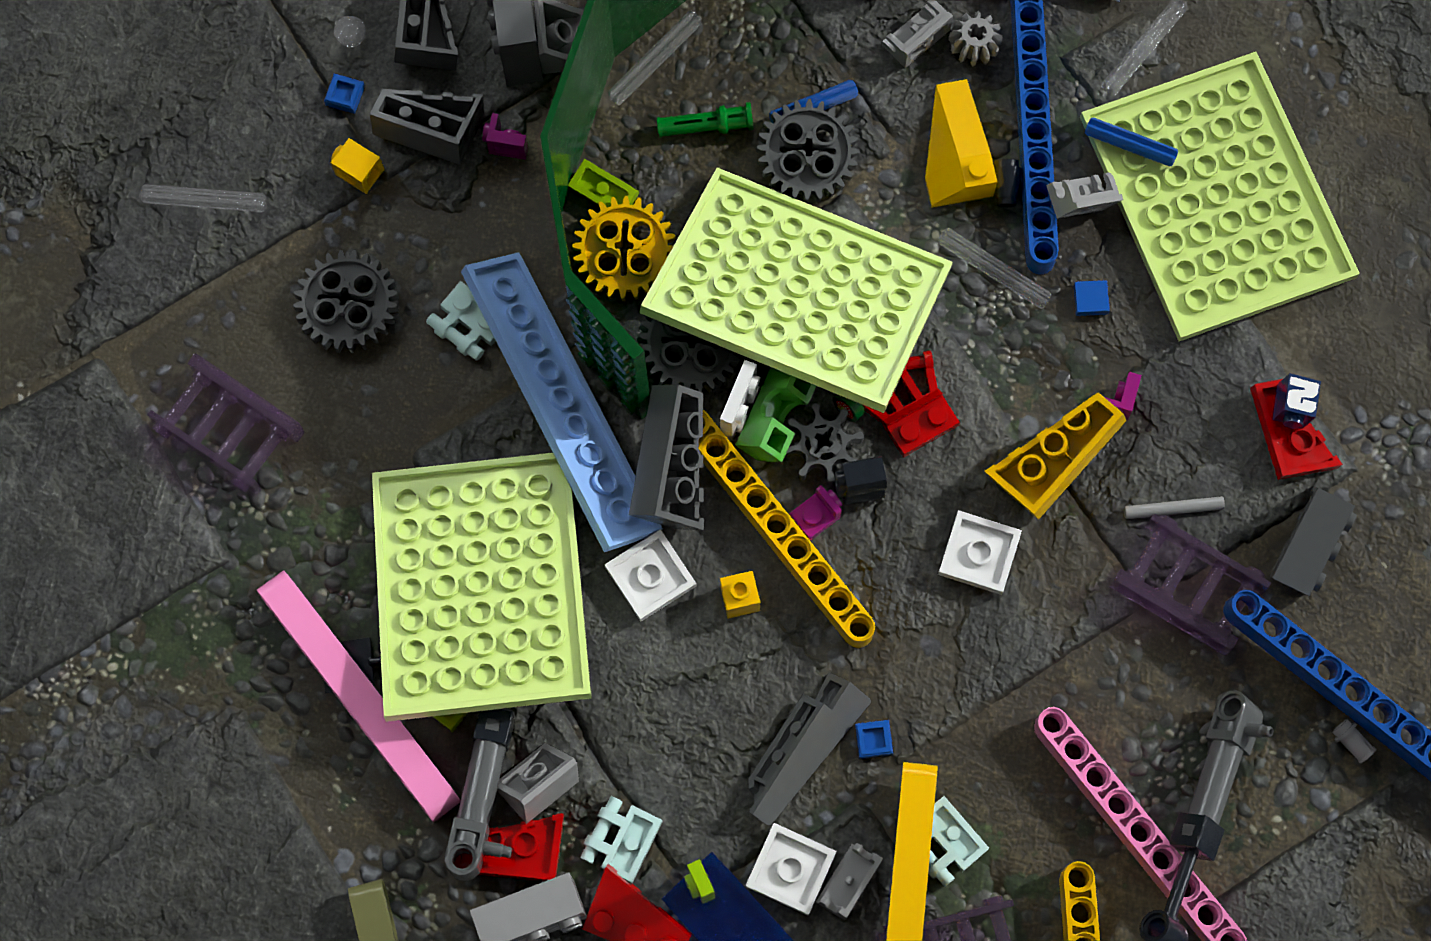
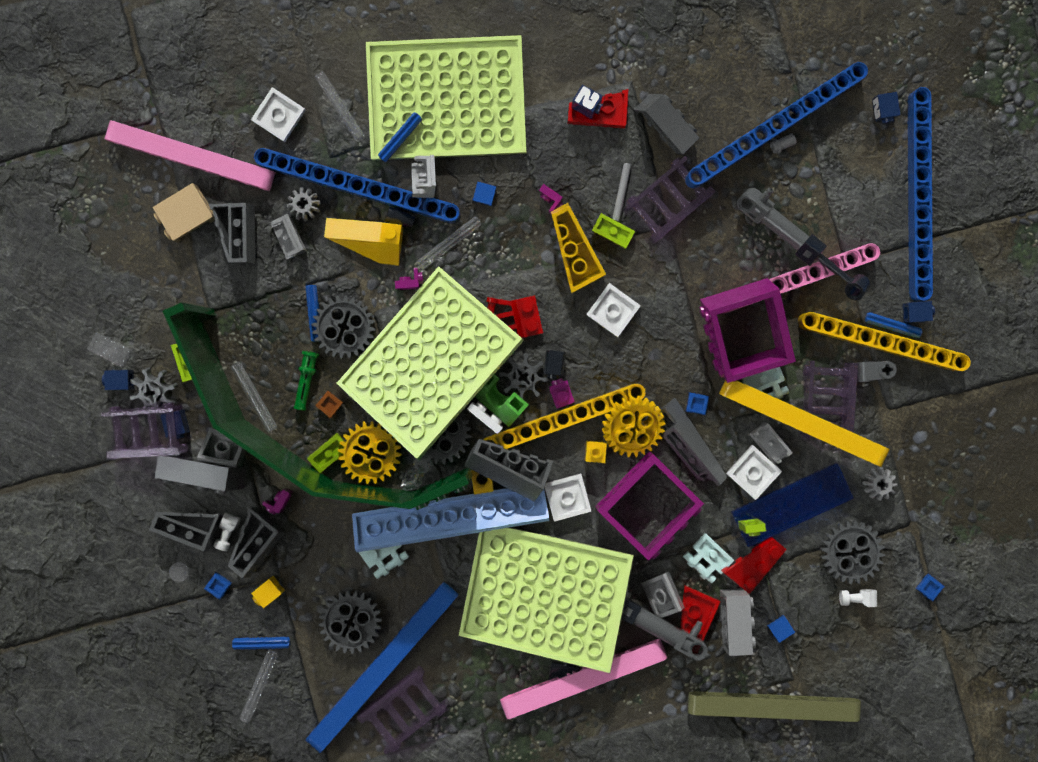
camera: 75 degrees left, 15 degrees up
(272, 181) = (261, 643): none -> blue axle
(287, 371) = (381, 667): none -> blue beam
(445, 78) = (228, 524): none -> white leg
(621, 427) = (481, 488): none -> yellow brick
(680, 168) = (329, 404): none -> dark orange plate
(703, 656) = (667, 534): none -> magenta window
(796, 611) = (650, 427): none -> yellow gear
(909, 226) = (407, 284): none -> magenta bracket
(1000, 710) = (736, 298): none -> magenta window
(1107, 512) = (613, 231): none -> lime plate

